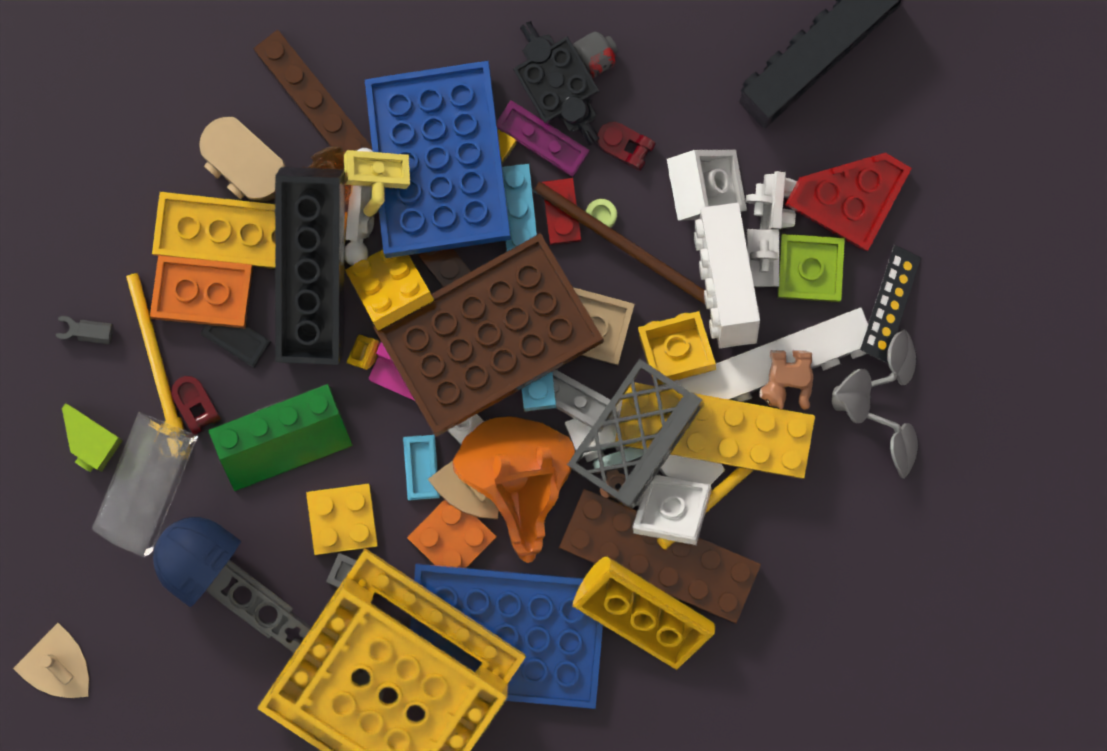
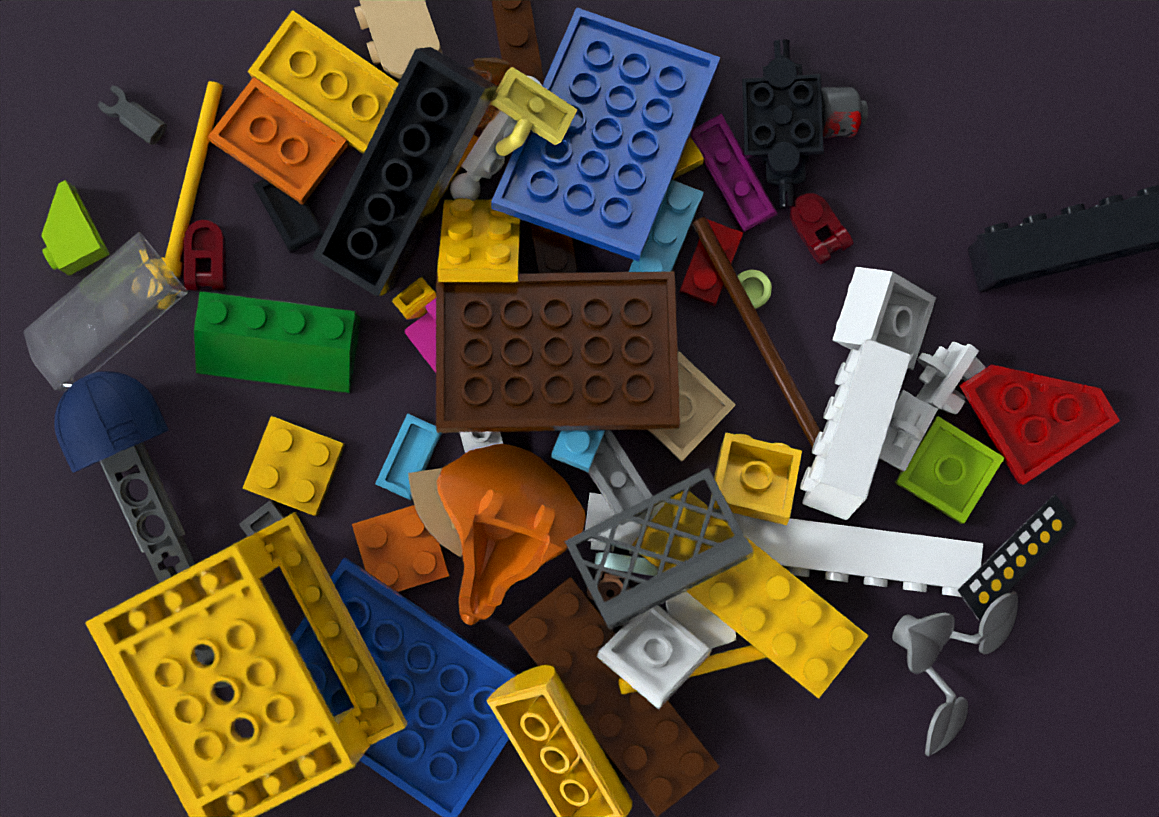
camera: 30 degrees right, 0 degrees up
(788, 375) = (859, 572): nougat animal -> none

